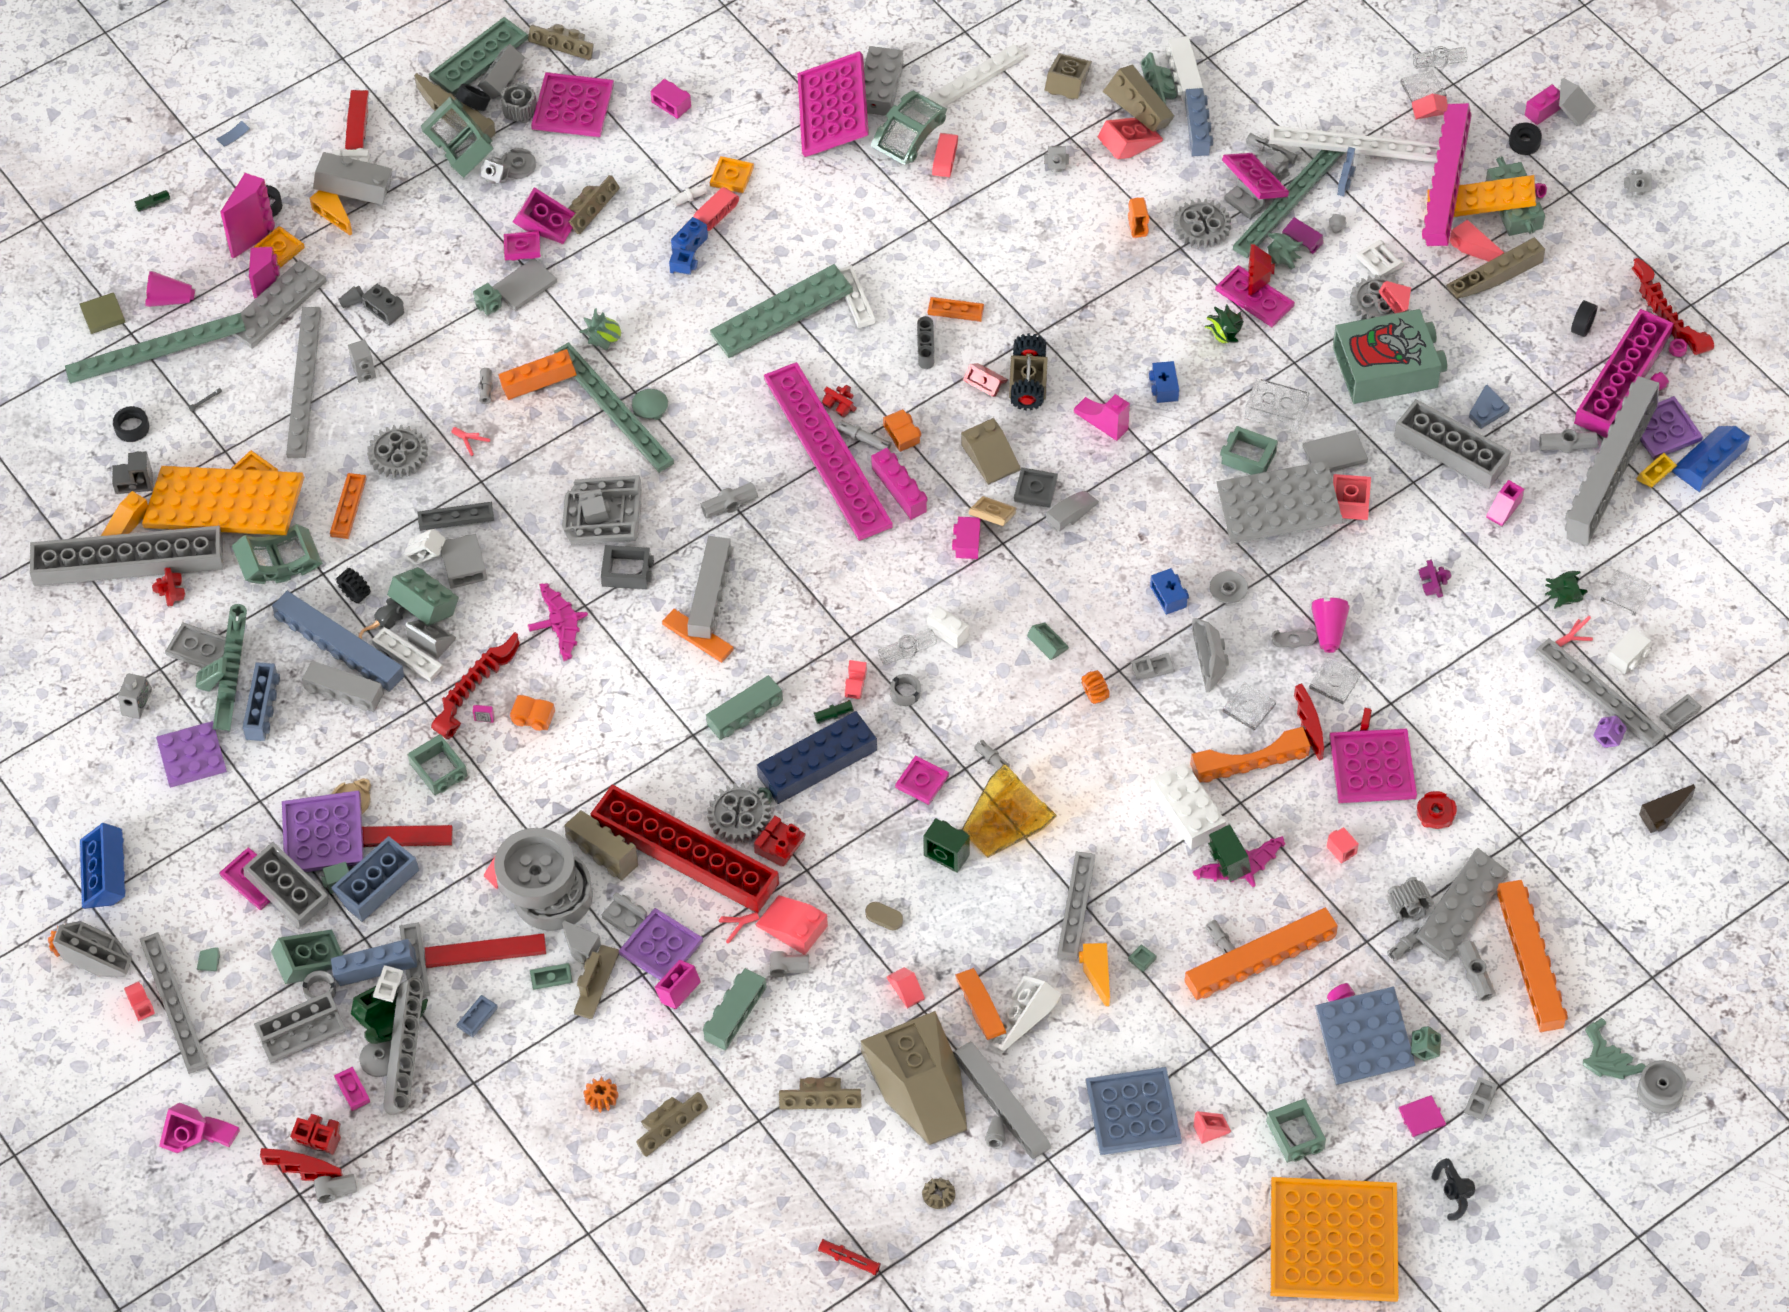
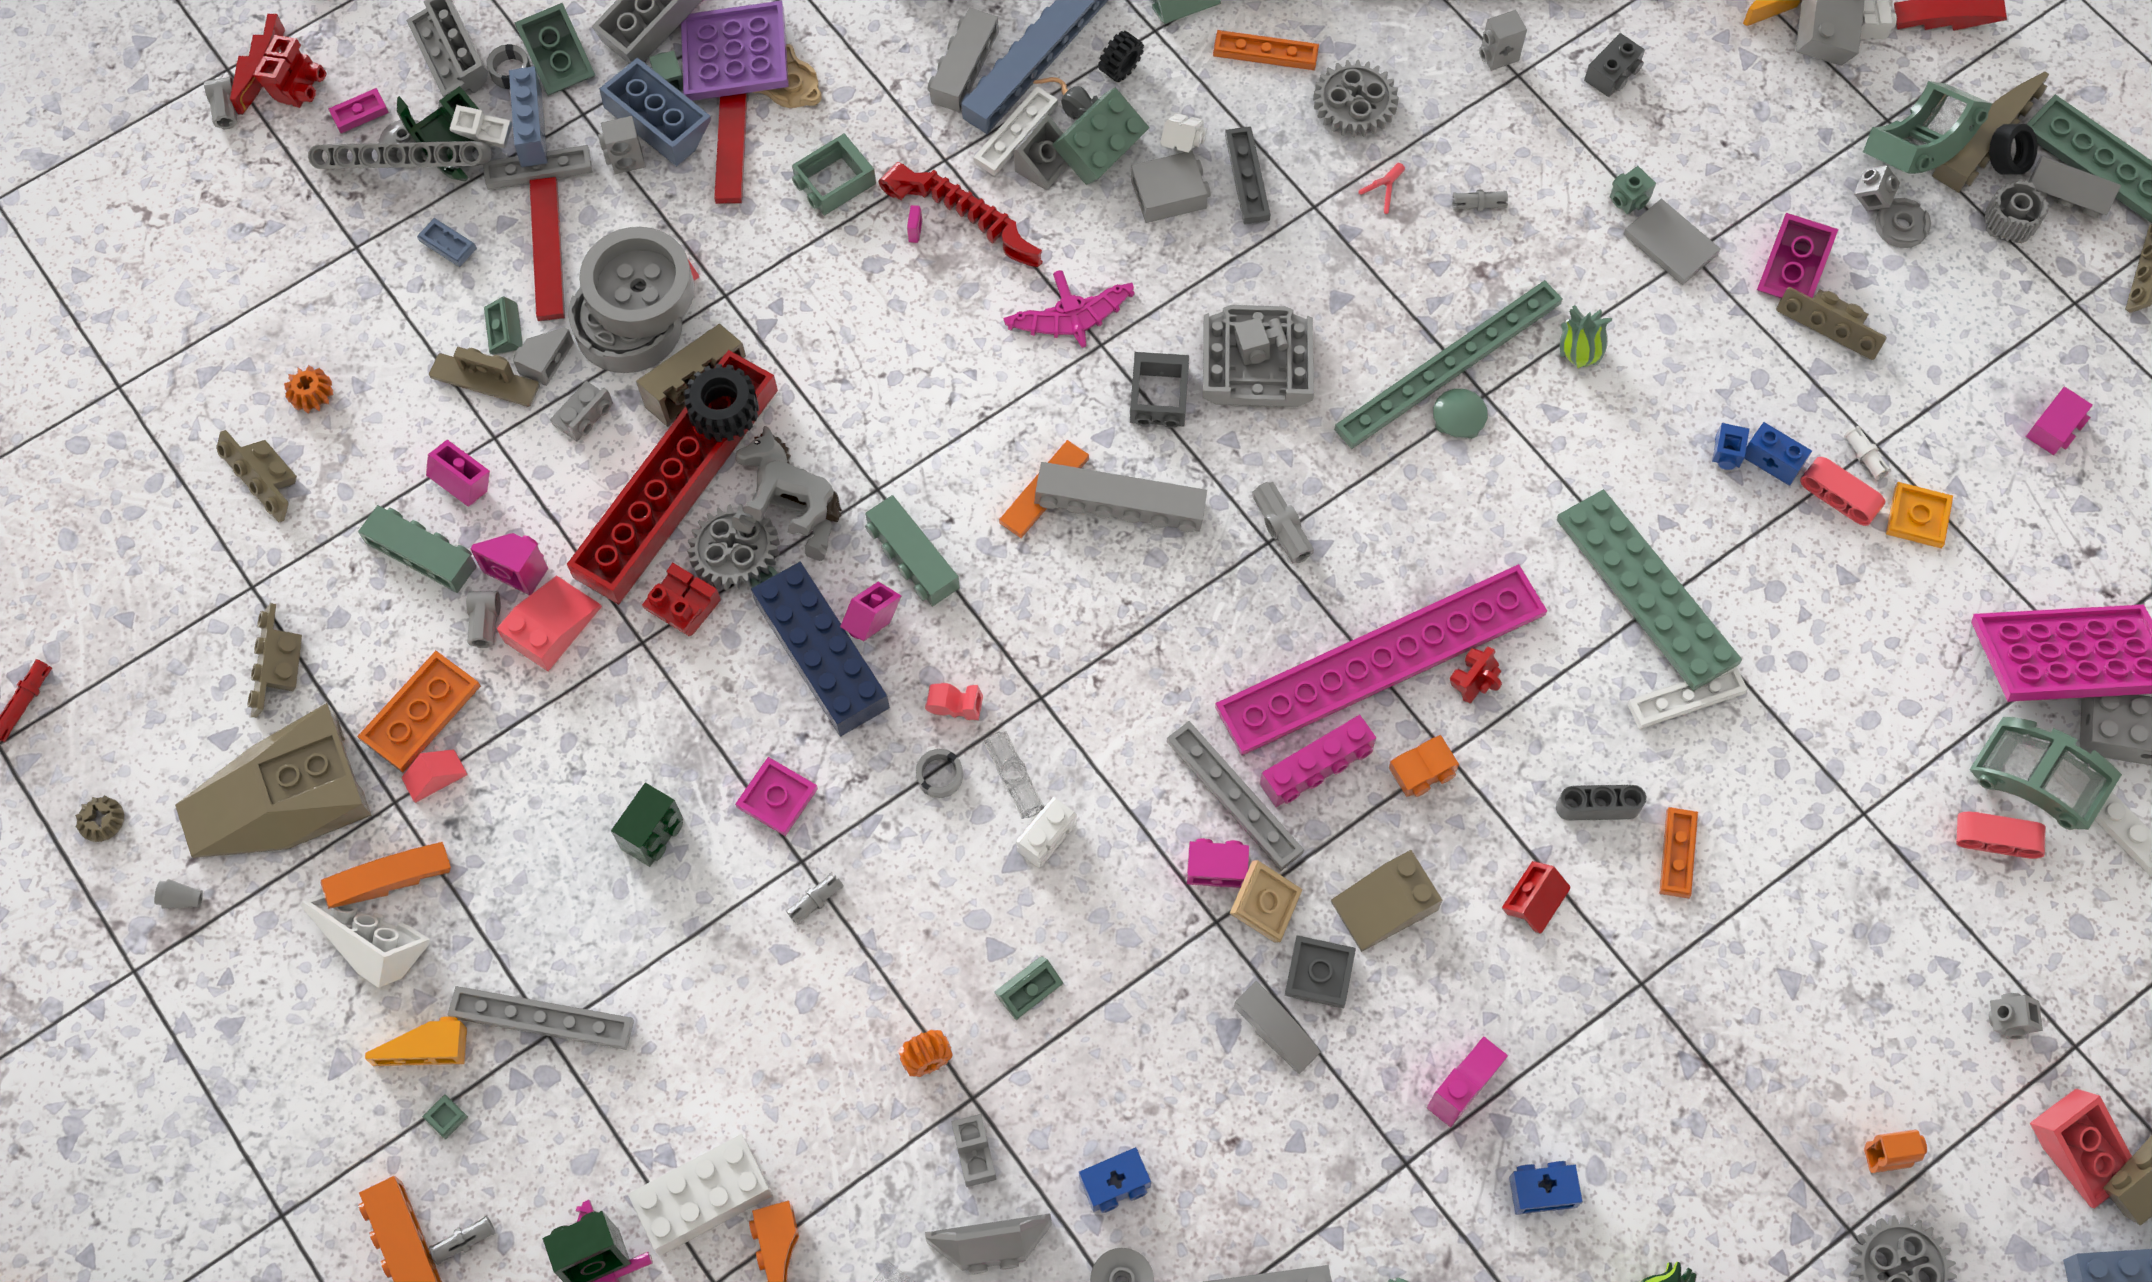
camera: 90 degrees right, 10 degrees up
(351, 297) = (1623, 24): dark grey cone -> none
(406, 896) = (621, 145): none -> light grey brick
(522, 245) = (1739, 230): dark pink plate -> none
(532, 712) = (913, 282): orange brick -> none
(537, 374) = (1494, 257): orange brick -> none
(572, 104) = (2027, 287): dark pink plate -> none
(639, 792) = (715, 384): none -> black tyre
(660, 944) = (530, 454): medium lavender plate -> none
(698, 779) = (789, 488): none -> light grey animal
(742, 920) = (559, 554): coral plant -> none
(752, 939) = (512, 561): none -> dark pink slope
(794, 722) = (870, 611): none -> dark pink brick
(833, 712) = (902, 672): dark green pin -> none
(859, 997) = (419, 711): none -> orange plate
(861, 435) = (1416, 701): light grey pin -> none
(884, 916) = (552, 745): dark tan tile -> none
(920, 529) = (1235, 795): none -> light grey plate
(1002, 1100) = (226, 904): light grey beam -> none
(1006, 814) = (706, 919): clear yellow wedge -> none
(1028, 372) = (1537, 958): brick -> none
(1133, 1111) = (183, 1093): sand blue plate -> none
(1210, 1126) = (138, 1207): coral slope -> none

